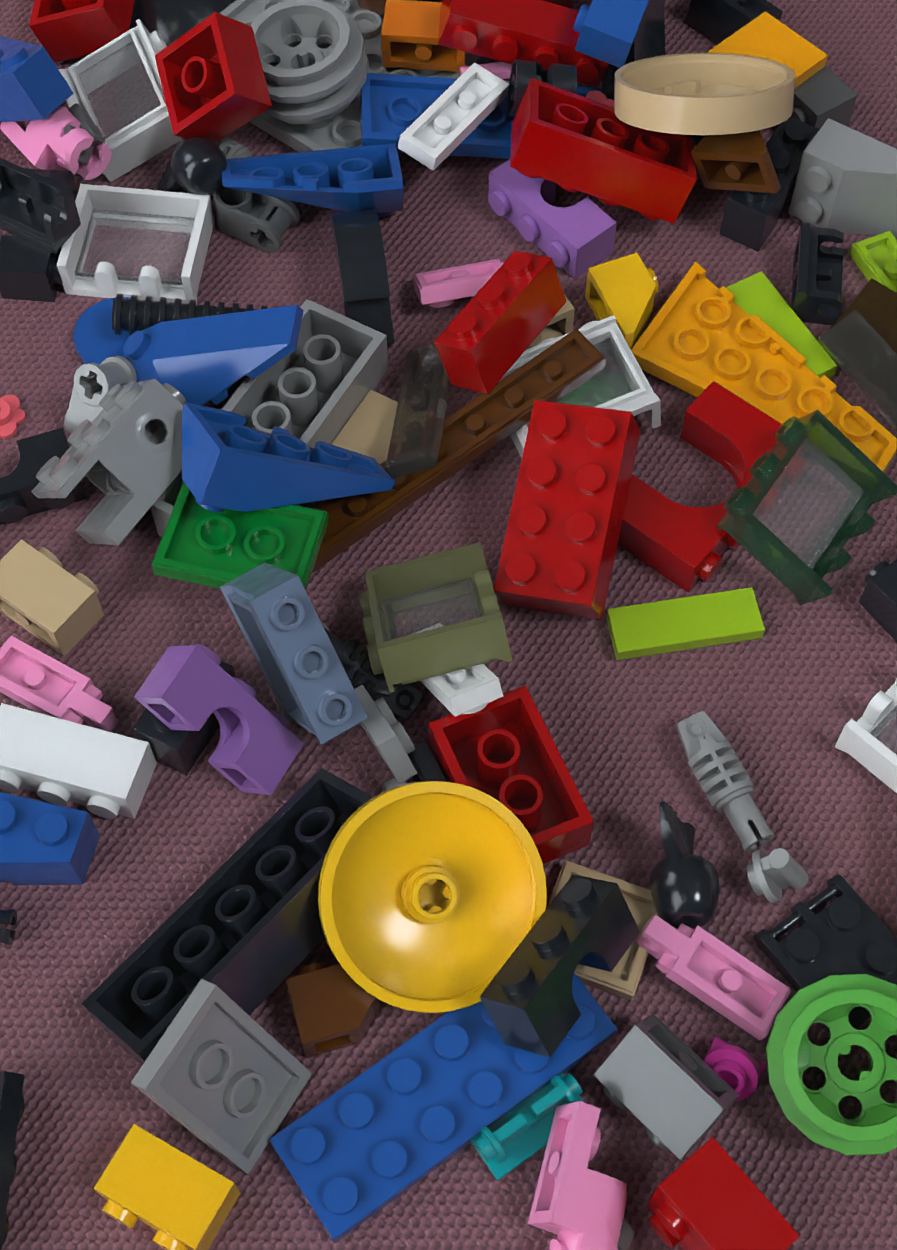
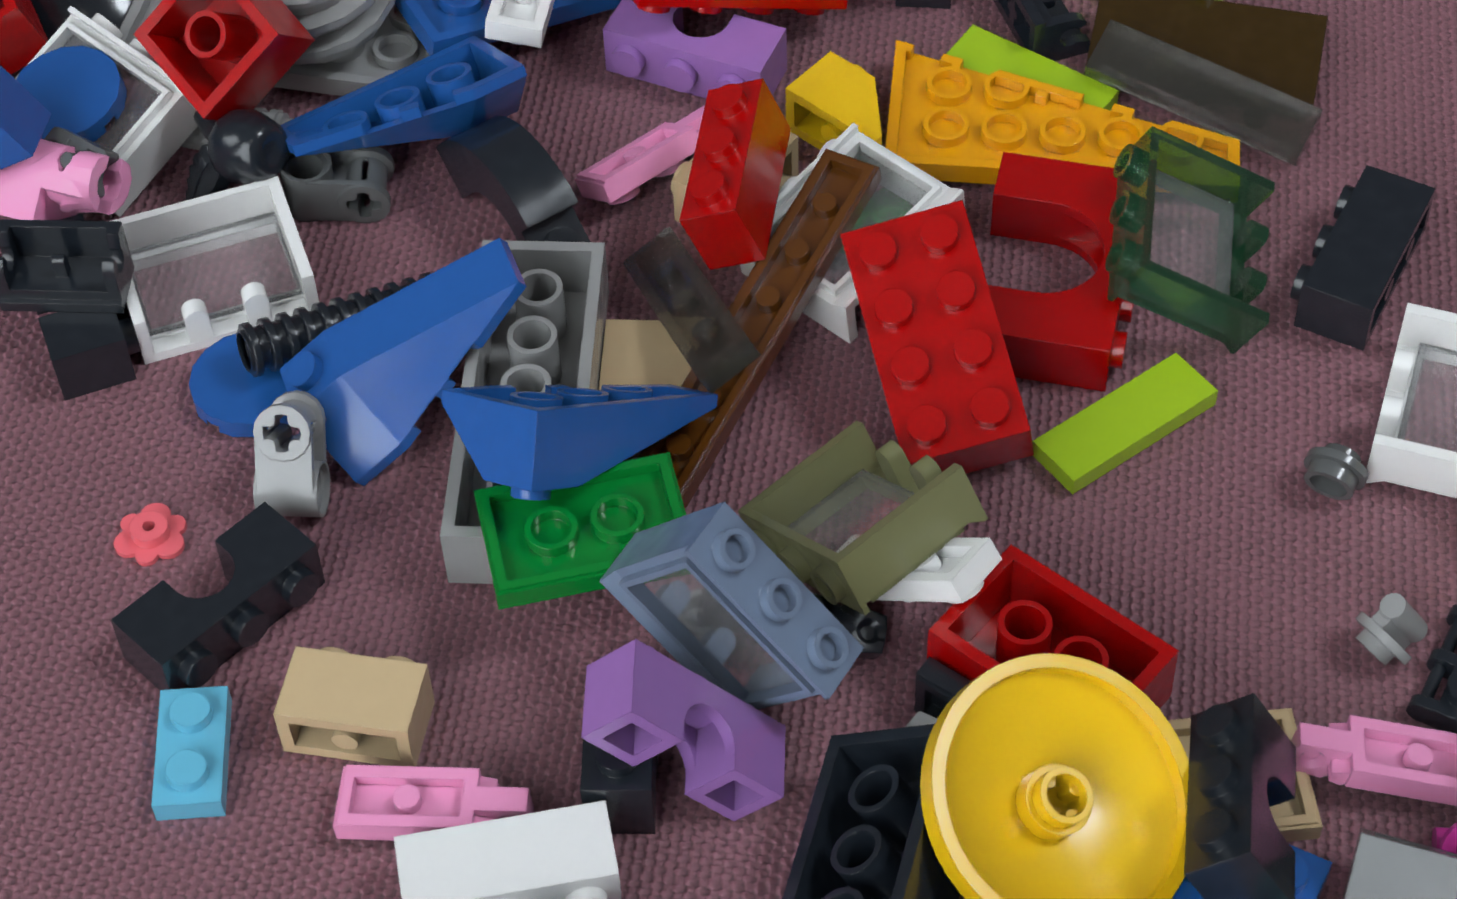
camera: 25 degrees left, 10 degrees down
(106, 82) = (78, 88): none -> blue tile
(126, 452) = (376, 495): light grey torso -> none
(387, 735) = (892, 677): light grey plate -> none
(683, 883) = (1303, 679): black piece -> none
(723, 779) = (1272, 560): light grey hinge -> none
(811, 730) = (1334, 471): none -> dark grey plate

